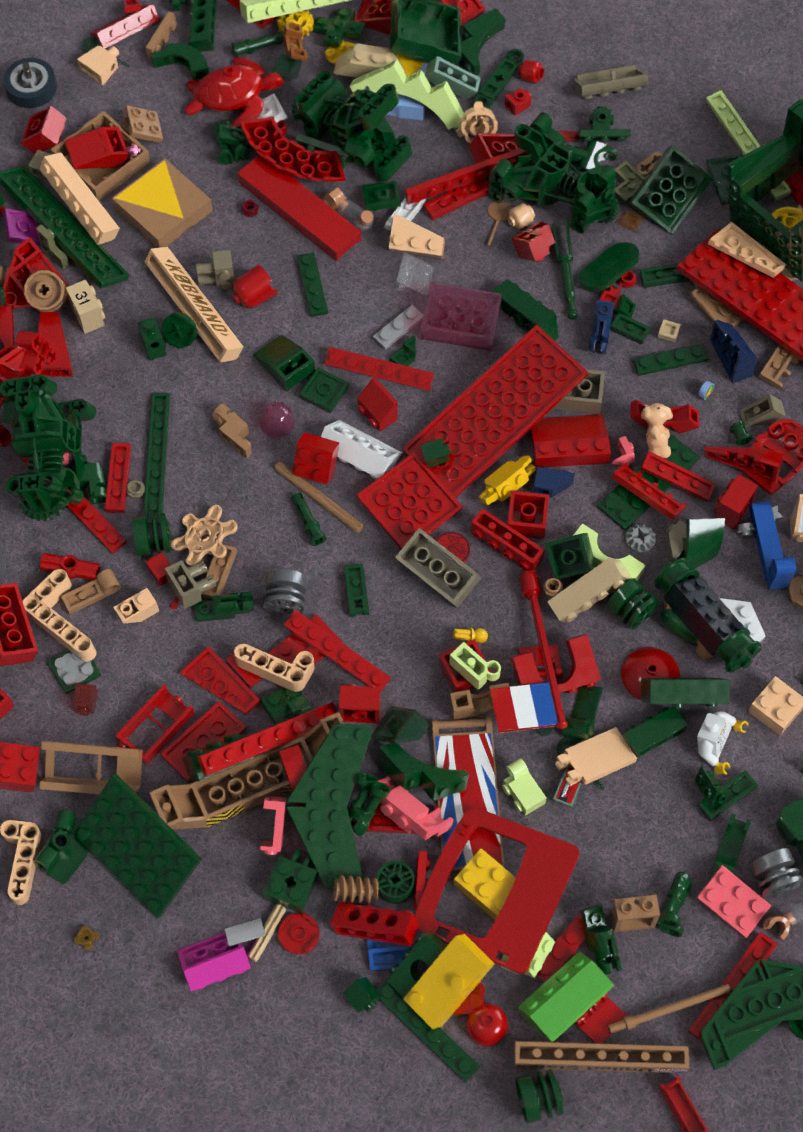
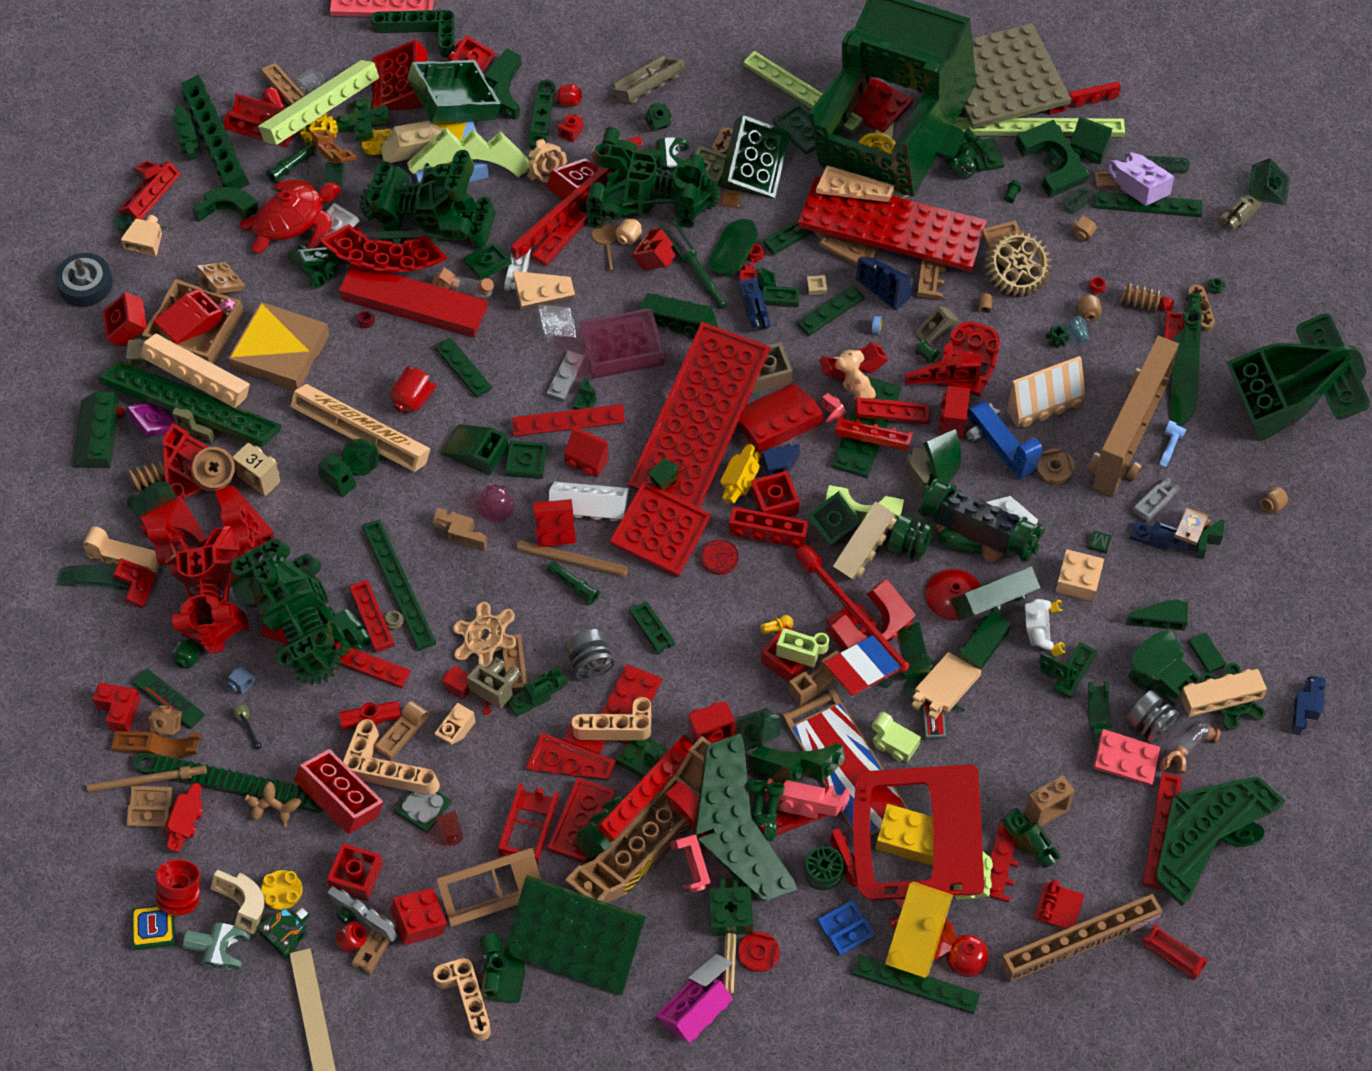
camera: 25 degrees left, 5 degrees down
(80, 939) = (562, 1035): pearl gold plate -> none
(151, 534) = (439, 651): dark green wheel -> none
(162, 34) = (192, 187): medium nougat plate -> none
(218, 271) = (370, 389): dark tan brick -> none
(336, 651) = (662, 688): red plate -> none
(355, 888) = (794, 887): medium nougat piece -> none
(362, 995) = (846, 978): dark green brick -> none
(374, 923) = (812, 914): red brick -> none
(405, 975) = (876, 945): dark green arch -> none
(438, 567) = (719, 576): dark tan brick -> none
(460, 81) = (490, 124): sand green brick -> none
(539, 1096) = (1048, 990): dark green wheel -> none
(552, 587) = (832, 552): medium nougat cone -> none
(565, 997) = (1025, 900): bright green slope -> none
(604, 135) = (667, 130): dark green plate -> none
(631, 1021) = (1091, 896): medium nougat bar -> none
(636, 543) = (884, 485): light grey gear -> none
(669, 920) = (1083, 796): dark green piece -> none

